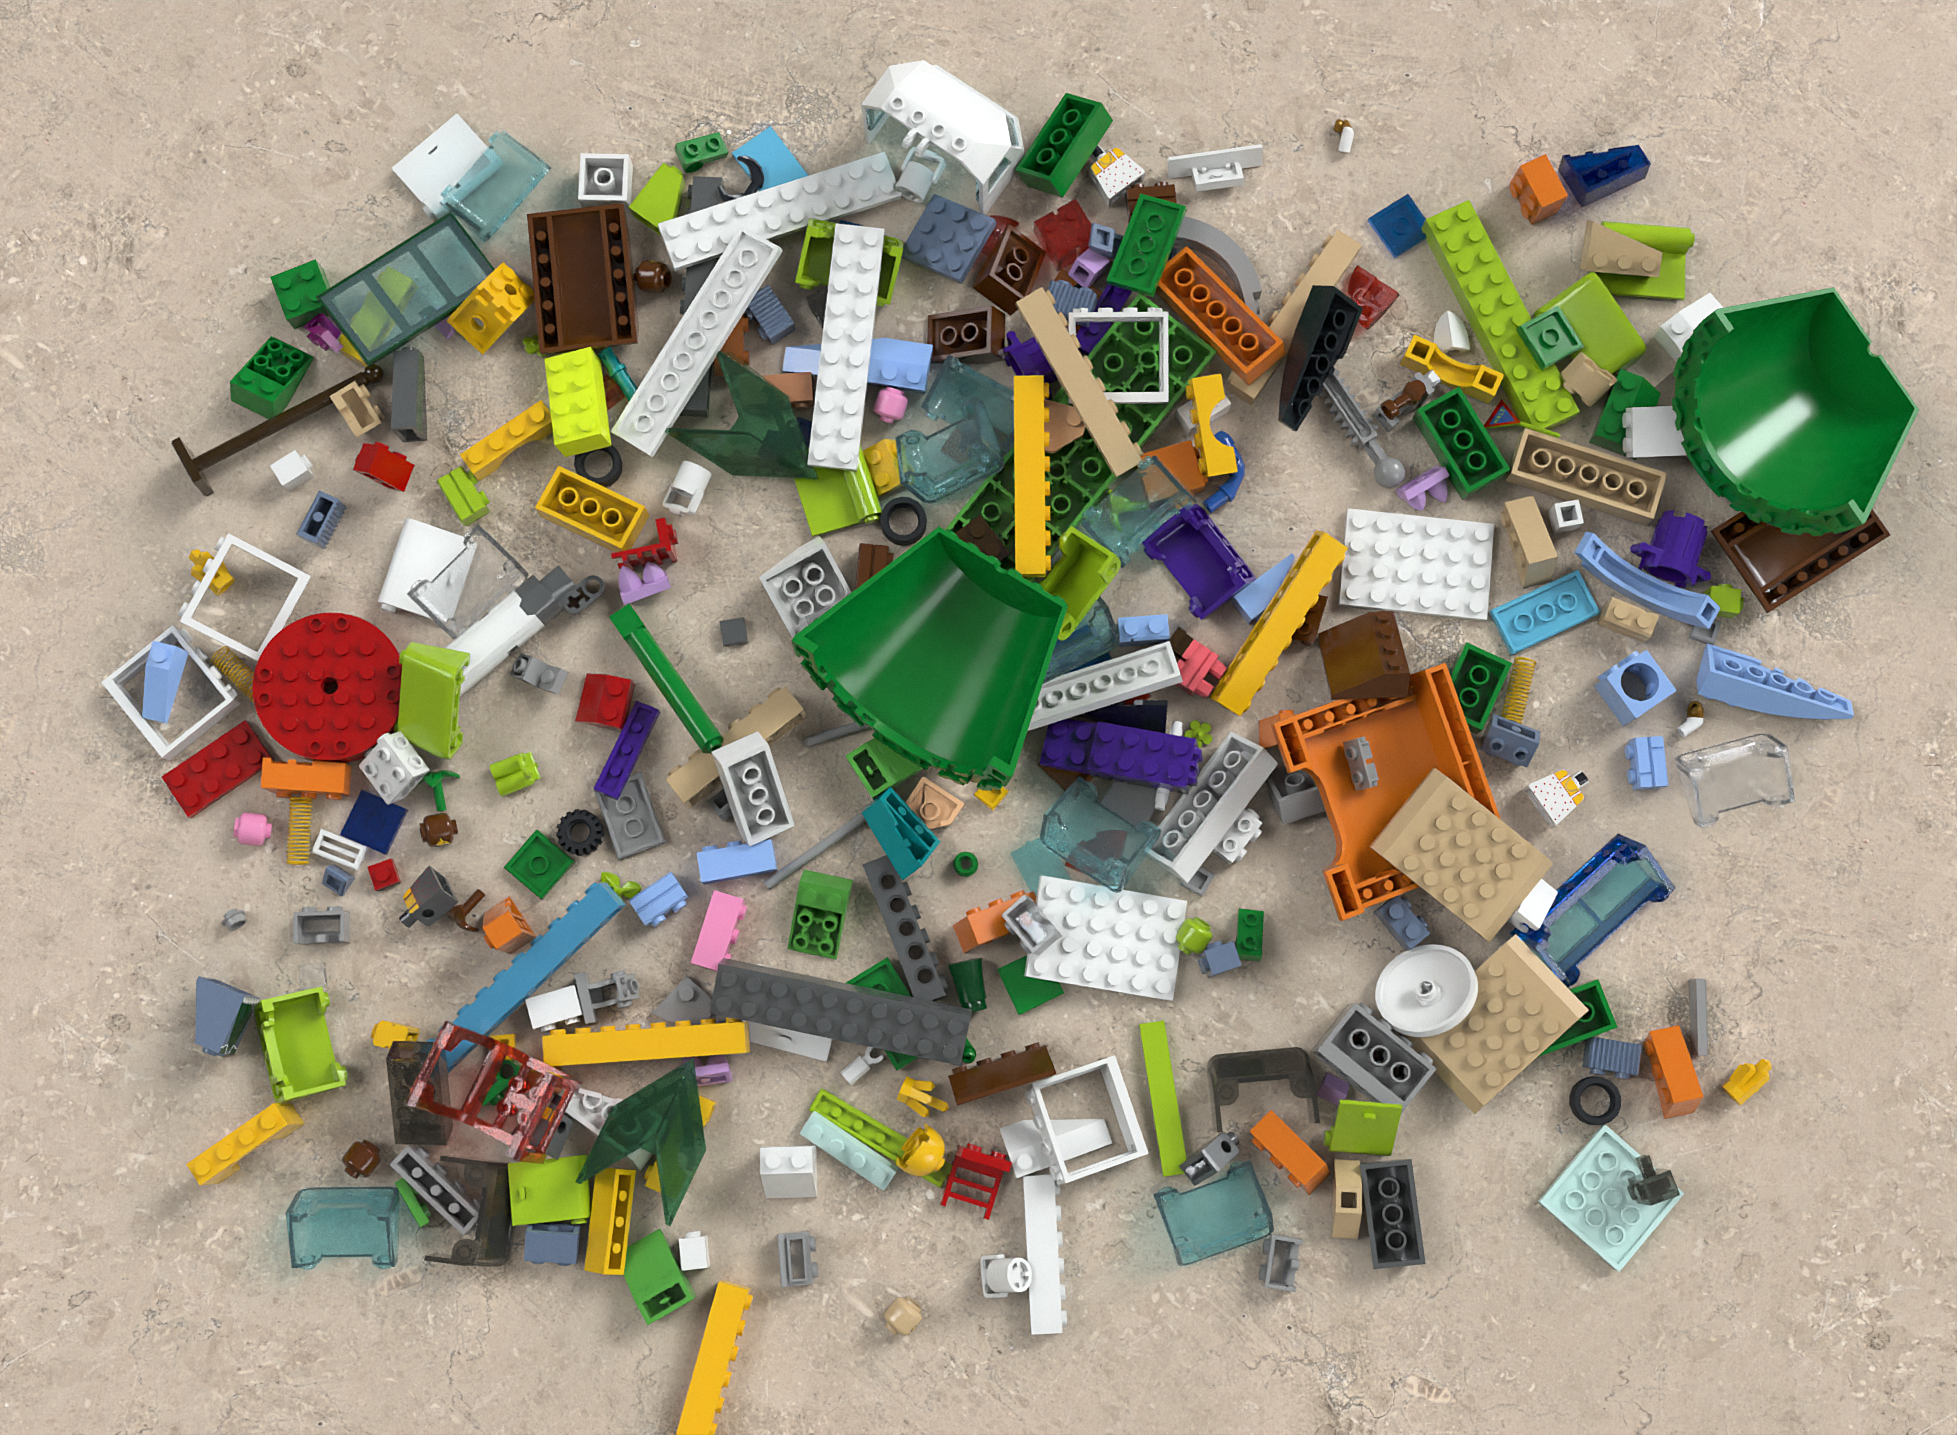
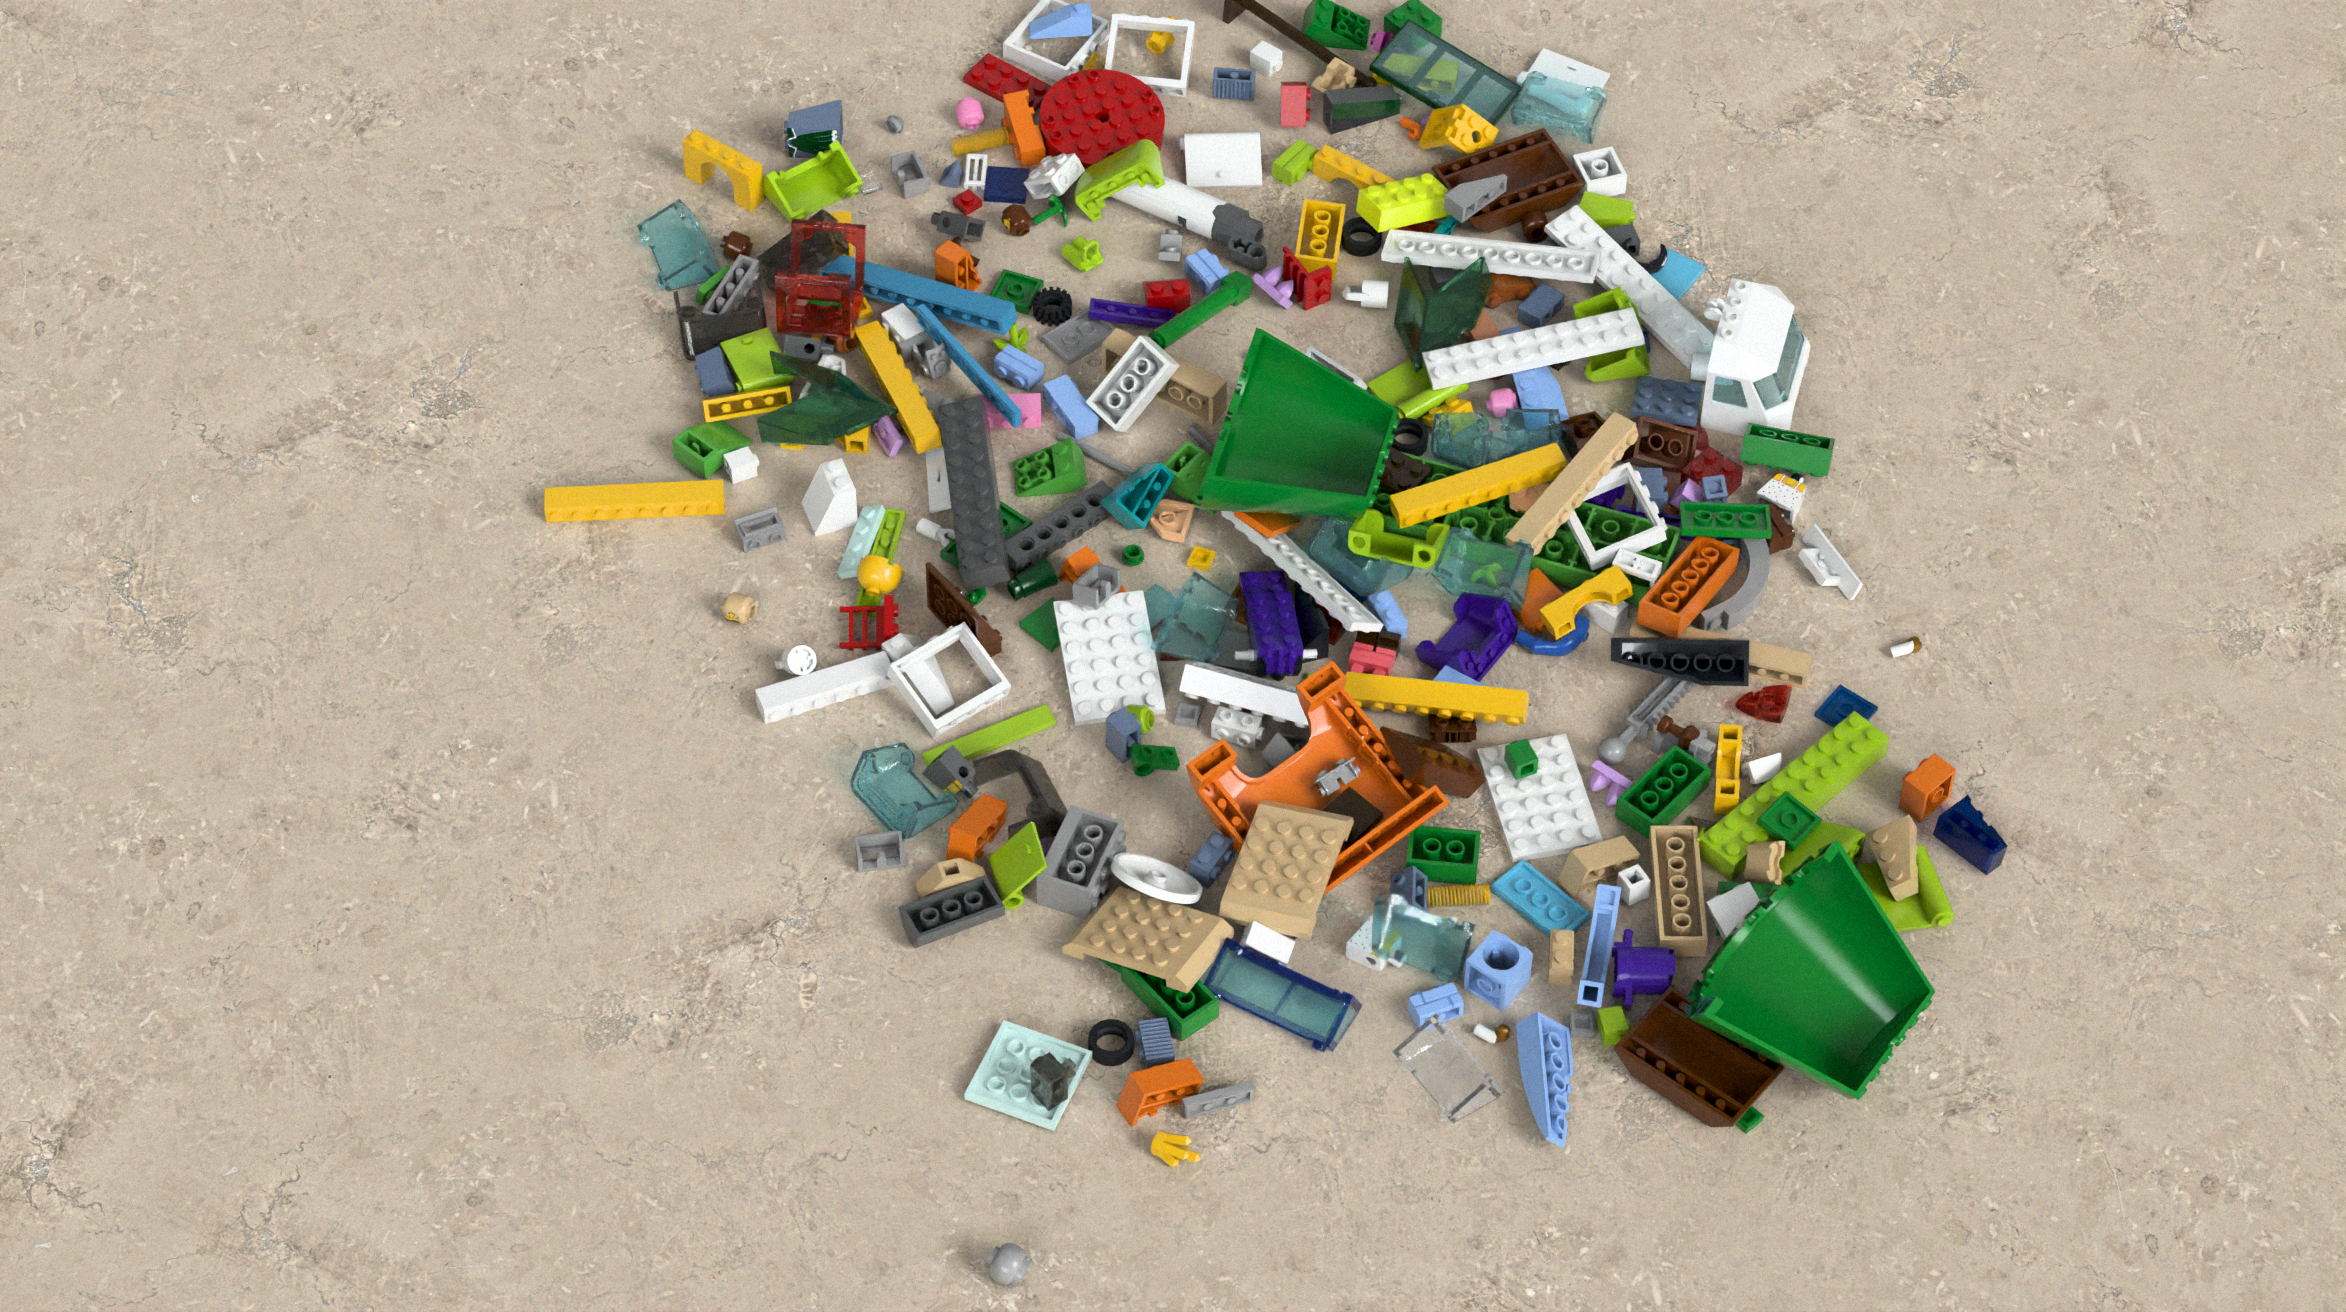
camera: 70 degrees right, 30 degrees down
(457, 350) = (1413, 127): none -> orange arm
(469, 583) = (1223, 179): clear windscreen -> none
(592, 647) = (1205, 270): none -> light blue brick
(610, 332) = (1472, 196): none -> light grey slope
(654, 958) = (969, 366): none -> dark azure tile
(700, 150) = (1654, 223): green plate -> none
(911, 1092) = (919, 571): yellow rock -> none
(1192, 358) = (1638, 566): none -> white hinge
(1381, 566) = (1521, 759): none -> green brick
(1408, 764) = (1363, 813): none -> dark brown plate
(1573, 749) = (1419, 938): none -> clear light blue windscreen
(1843, 1294) = (1008, 1264): none -> light grey piece

